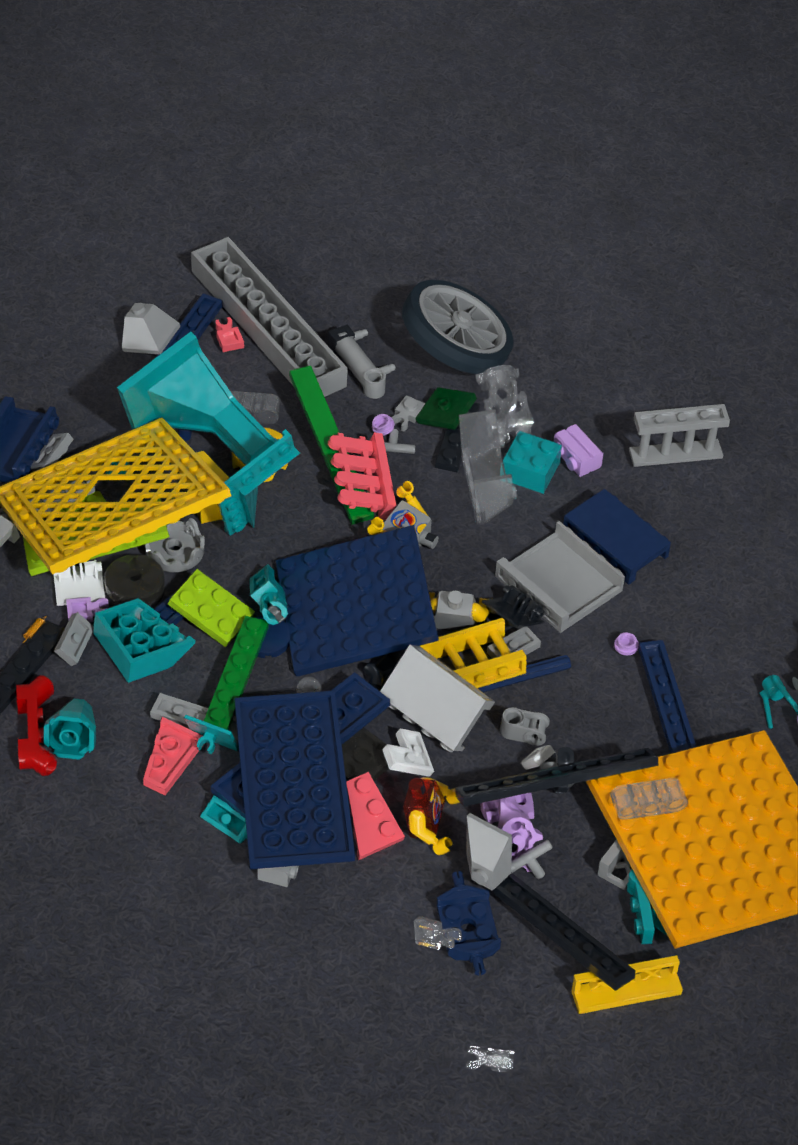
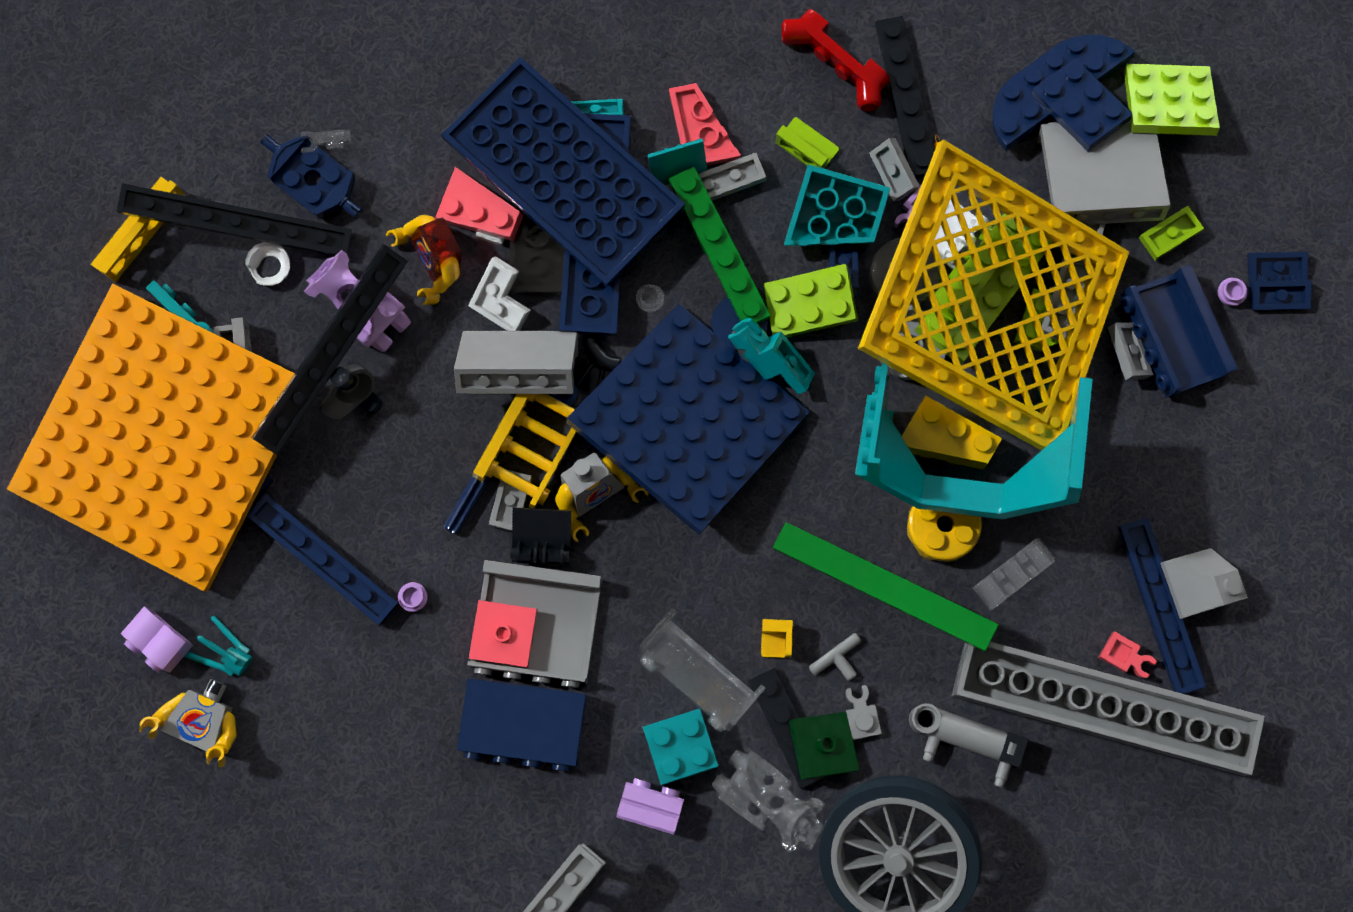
camera: 145 degrees right, 30 degrees up
(71, 730) = (802, 79): teal cone -> none
(111, 696) = (806, 144): none -> lime panel
(376, 474) = (797, 582): coral fence -> none
(383, 424) = (867, 671): lavender plate -> none
(407, 514) = (726, 552): torso -> none
(417, 473) = (776, 638): none -> yellow panel
(487, 852) = (335, 229): light grey slope -> none
(496, 1059) = (190, 77): clear plate -> none
(522, 725) = (424, 417): light grey piece -> none
(530, 859) = (302, 279): light grey piece -> none
(537, 757) = (387, 392): white tile -> none
(554, 884) = (262, 251): none -> white piece
(586, 582) = (503, 634): none -> coral plate
(648, 798) = (230, 391): clear beam -> none

